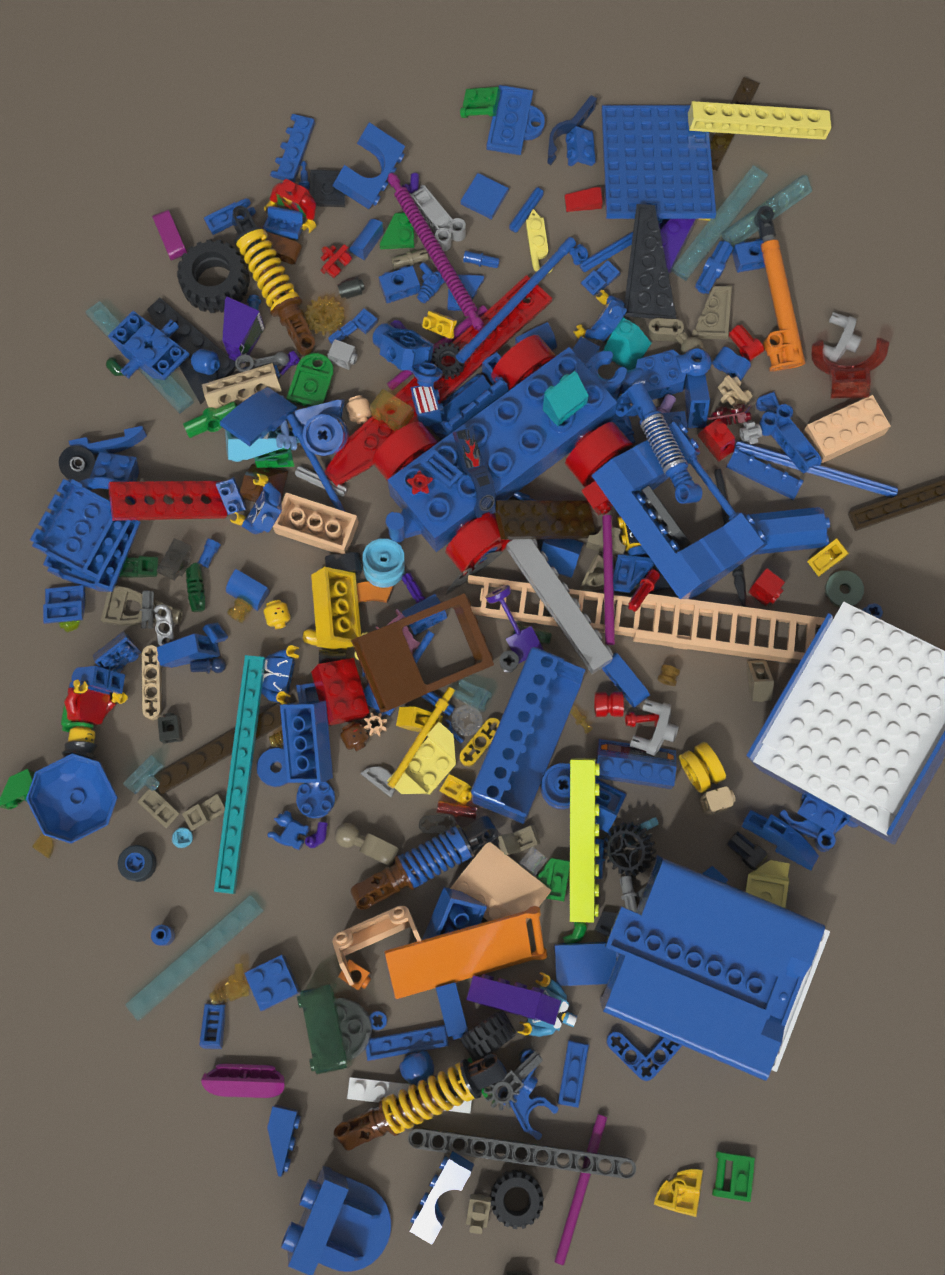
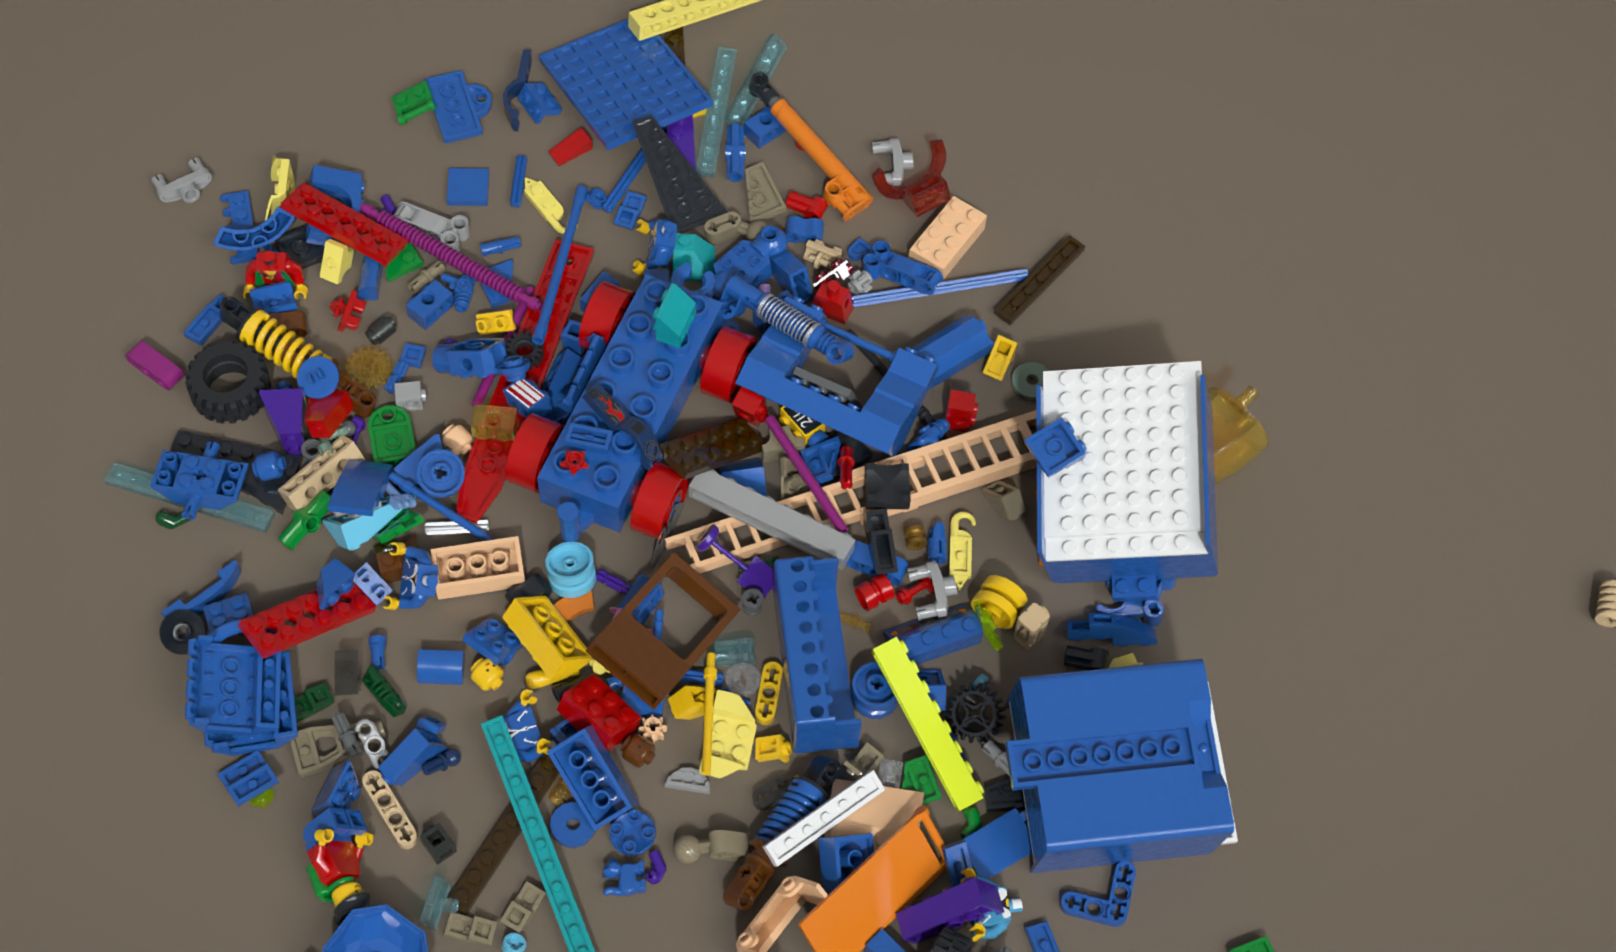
camera: 35 degrees left, 15 degrees down
(200, 482) = (333, 582): none -> blue slope
(238, 611) = (444, 690): clear yellow wheel -> none
(269, 94) = (184, 187): none -> light grey connector
(269, 338) = (327, 414): none -> red slope
(271, 357) = (326, 445): none -> sand green arm
(276, 307) = (318, 377): none -> blue piece
(294, 590) = (493, 641): none -> blue plate
(296, 163) = (256, 237): none -> blue brick
(337, 134) = (282, 172): none -> light yellow piece
(347, 212) = (335, 261): none -> light yellow brick
(362, 194) = (348, 234): none -> red plate
(456, 809) = (783, 767): clear red pin -> none
(457, 873) = (823, 818): none -> white plate
(543, 962) = (956, 860): none -> blue plate
(635, 667) = (880, 541): none -> black slope
(666, 624) = (887, 486): none -> black brick
(680, 784) = (988, 625): none -> clear neon green slope
(683, 689) = (937, 544): none -> blue hinge
(698, 704) = (960, 550): none -> light yellow plate
(729, 594) = (930, 434): none -> blue piece
(764, 474) = (895, 314): blue hinge -> none
(812, 676) = (1056, 447): none -> blue plate

